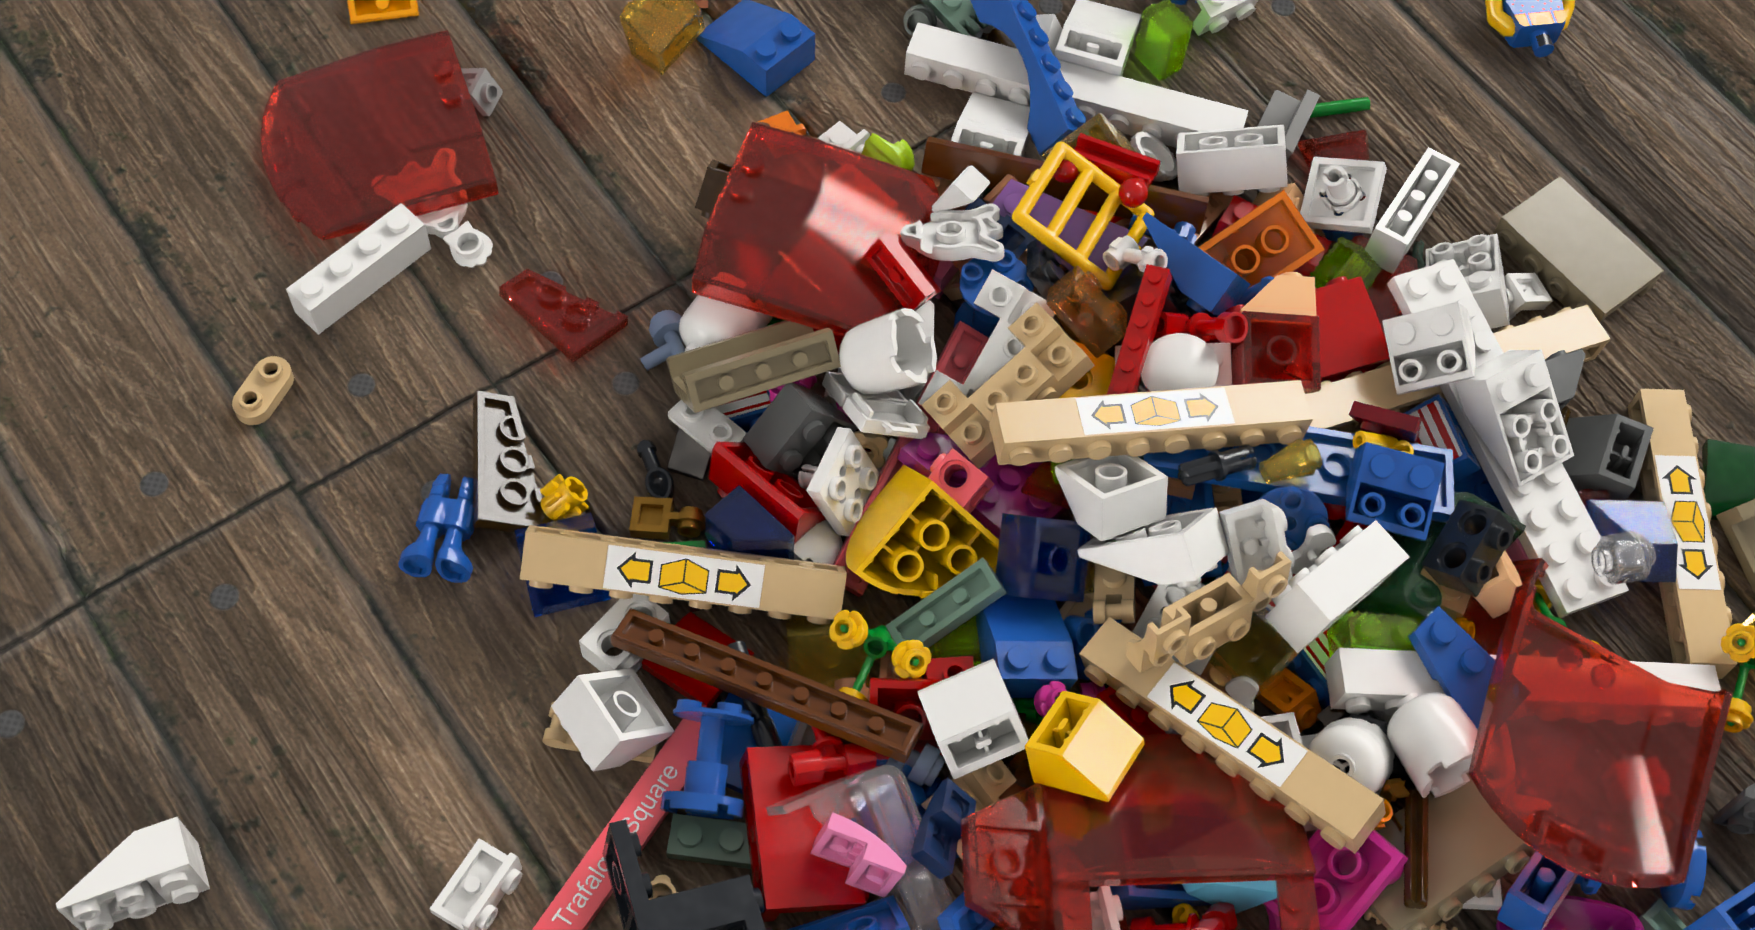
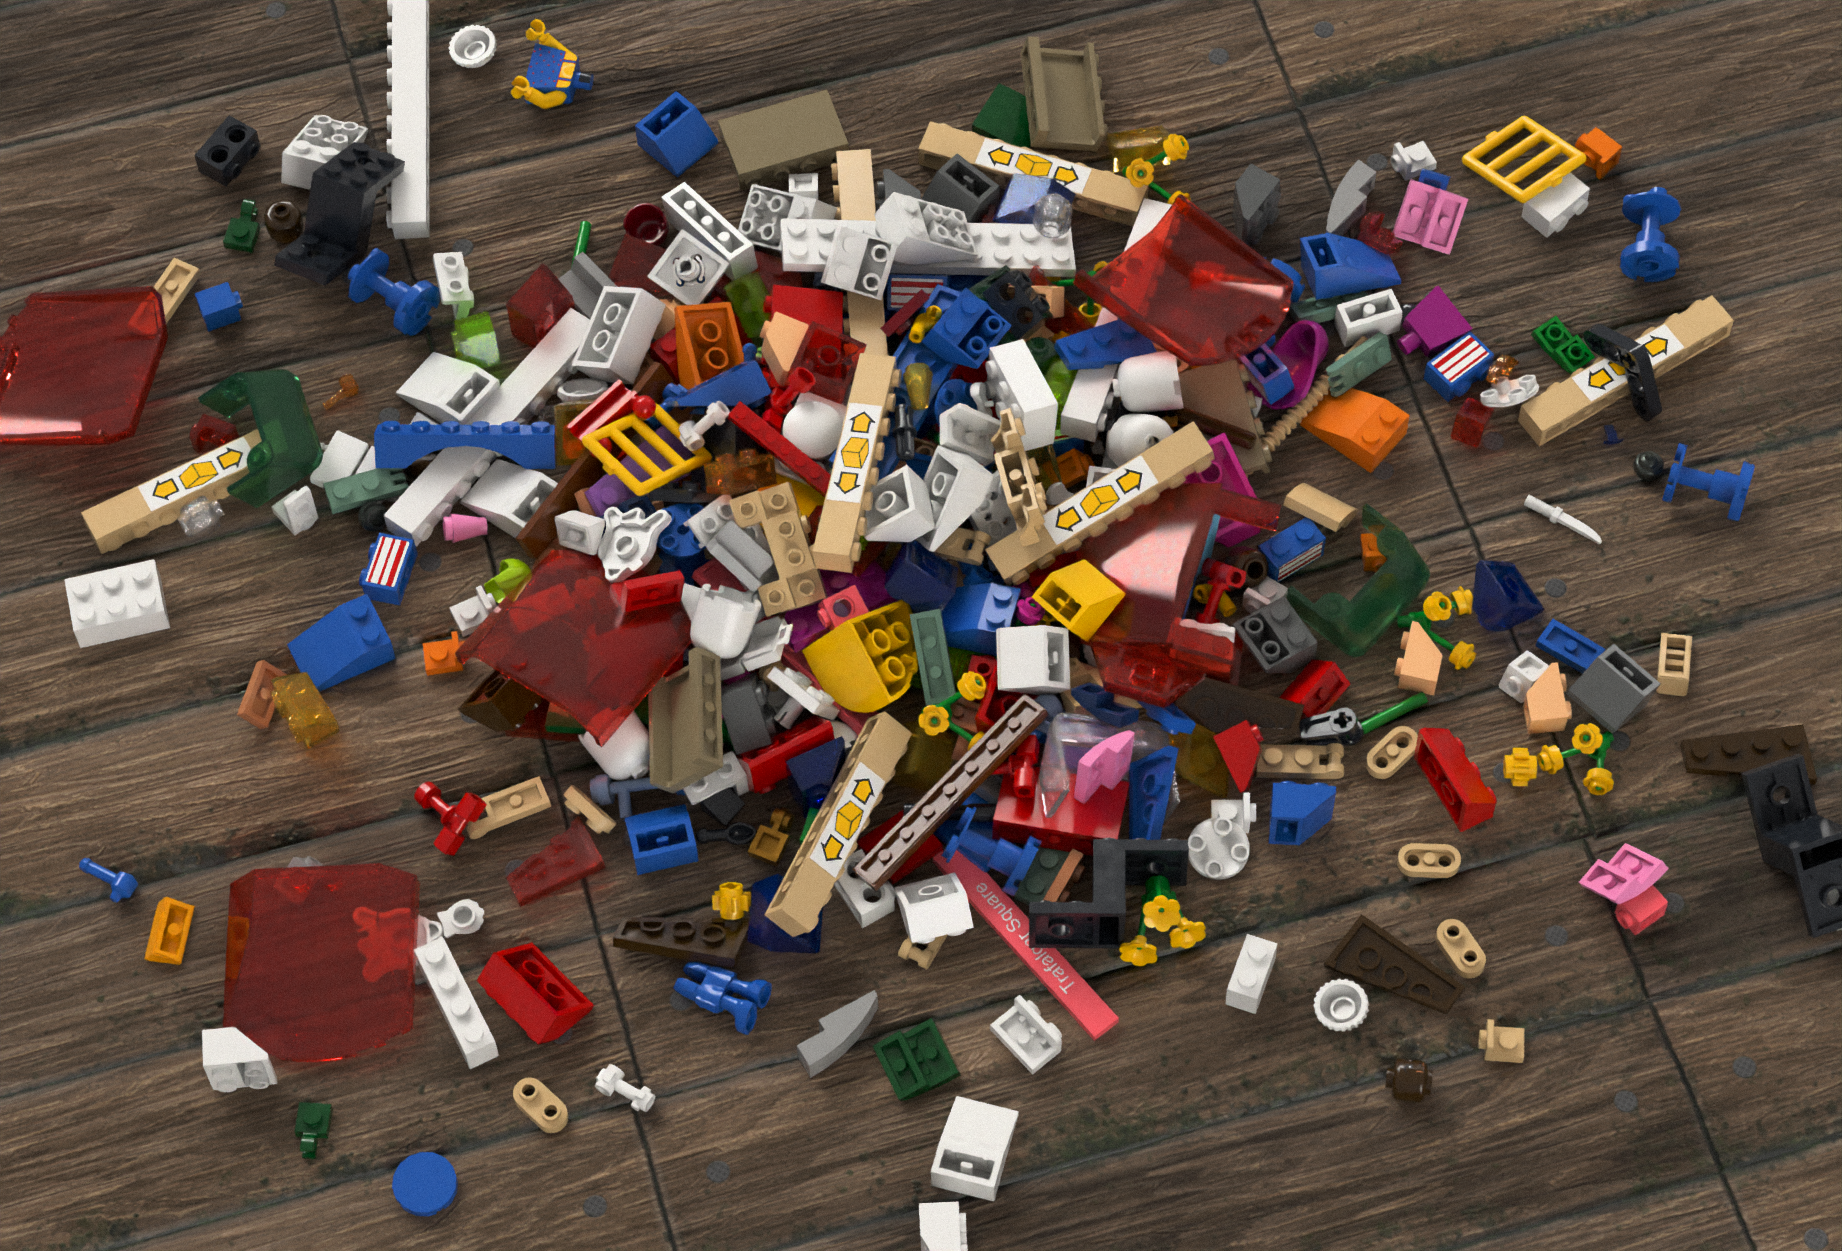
camera: 65 degrees left, 0 degrees up
(142, 310) = (424, 1184): none -> blue tile
(191, 188) = (312, 1123): none -> dark green plate
(233, 88) = (235, 1061): none -> white slope
(303, 448) = (611, 1079): none -> white bar
(304, 870) = (973, 1148): none -> white slope
(395, 339) = (534, 992): none -> red slope
(416, 770) = (916, 1060): none -> dark green slope
(422, 666) = (837, 1034): none -> light grey slope
(584, 196) = (453, 817): none -> red bar
(617, 245) = (510, 806): none -> tan plate
(621, 401) = (661, 839): none -> blue slope
(632, 328) = (597, 818): none -> tan plate
(687, 865) = (1070, 873): none -> nougat plate
(863, 53) = (388, 568): none -> brick
(940, 101) = (463, 527): none -> bright pink cone
(975, 342) = (740, 554): none -> light grey panel
(1237, 77) = (538, 306): none -> clear red slope
(1396, 149) = (647, 223): none -> dark red hair
(1522, 144) = (675, 134): none -> blue slope

